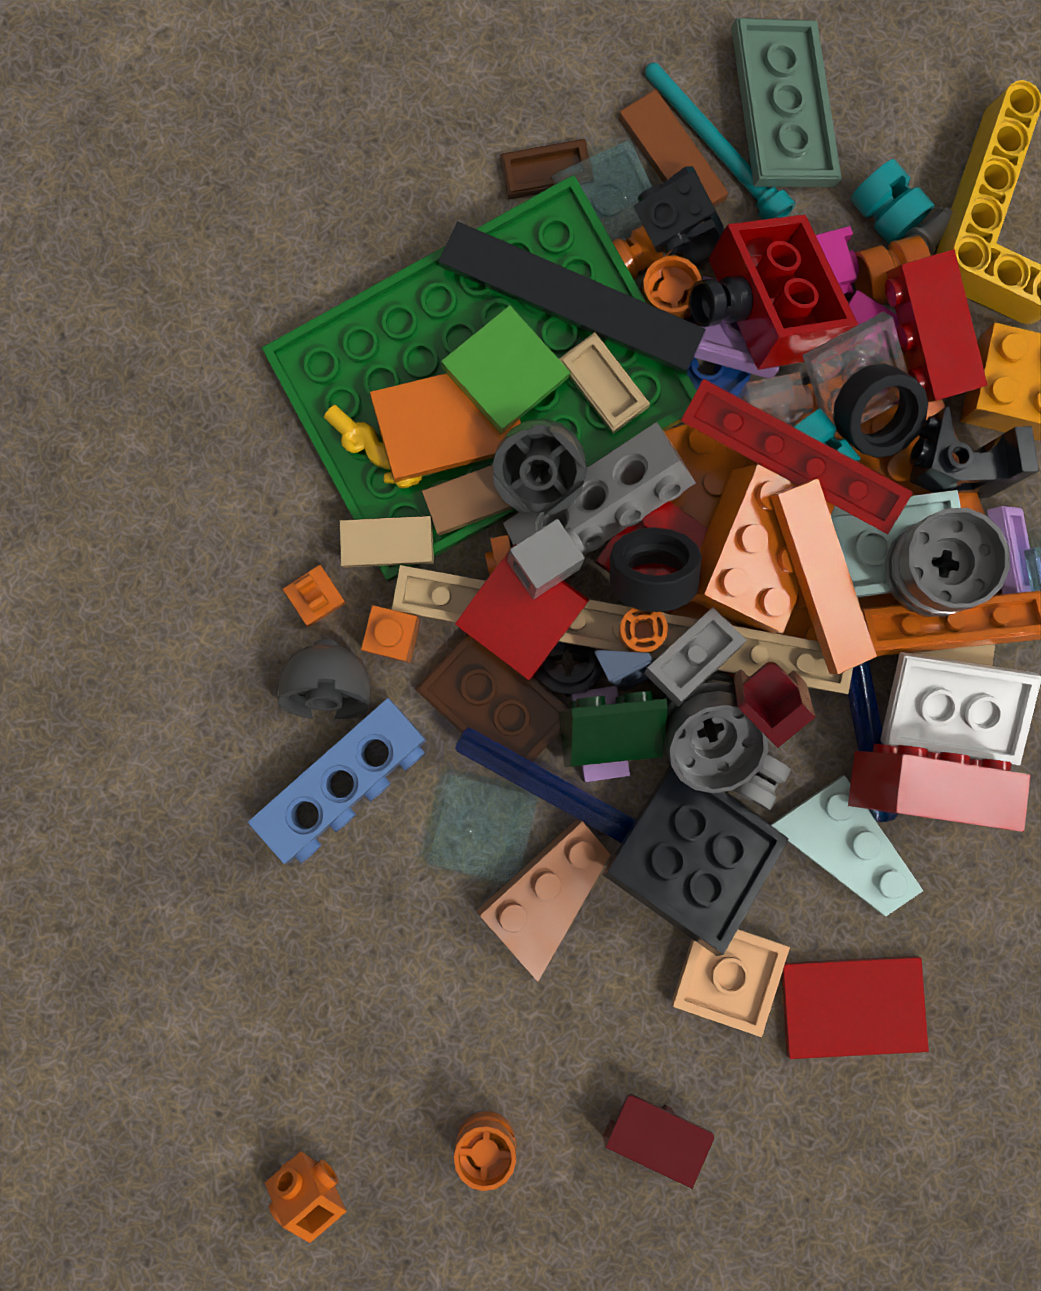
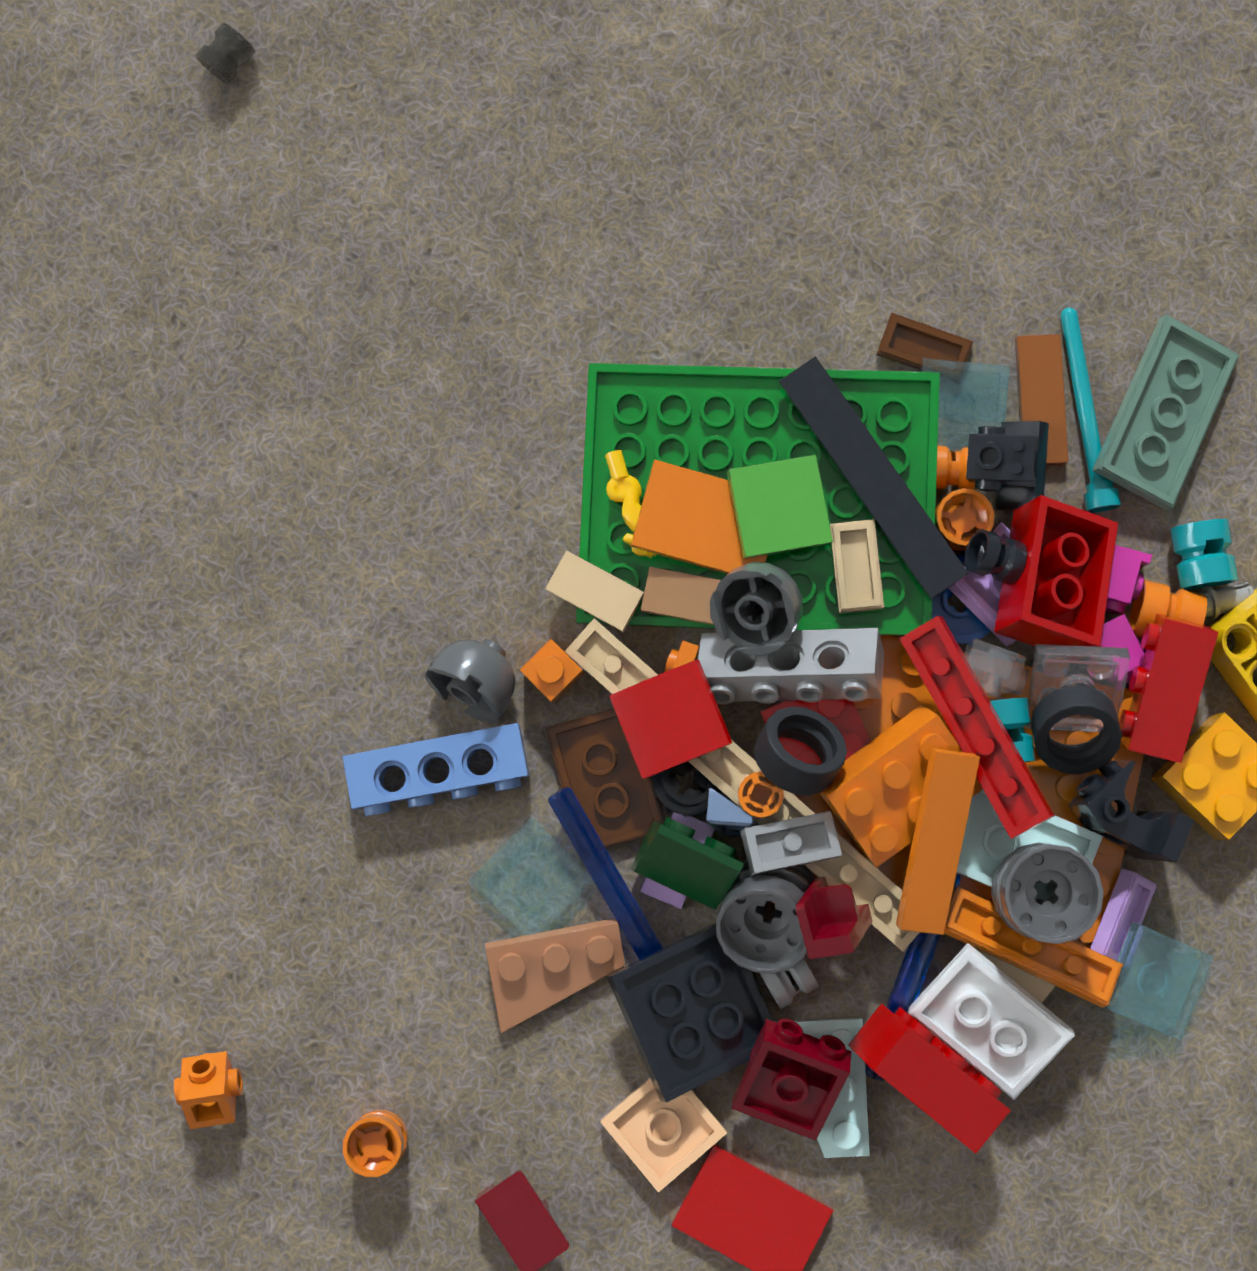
camera: 40 degrees right, 0 degrees up
(314, 596) = (508, 598): orange tile -> none
(546, 558) = (716, 688): light grey brick -> none
(820, 863) = (793, 1078): none -> dark red plate

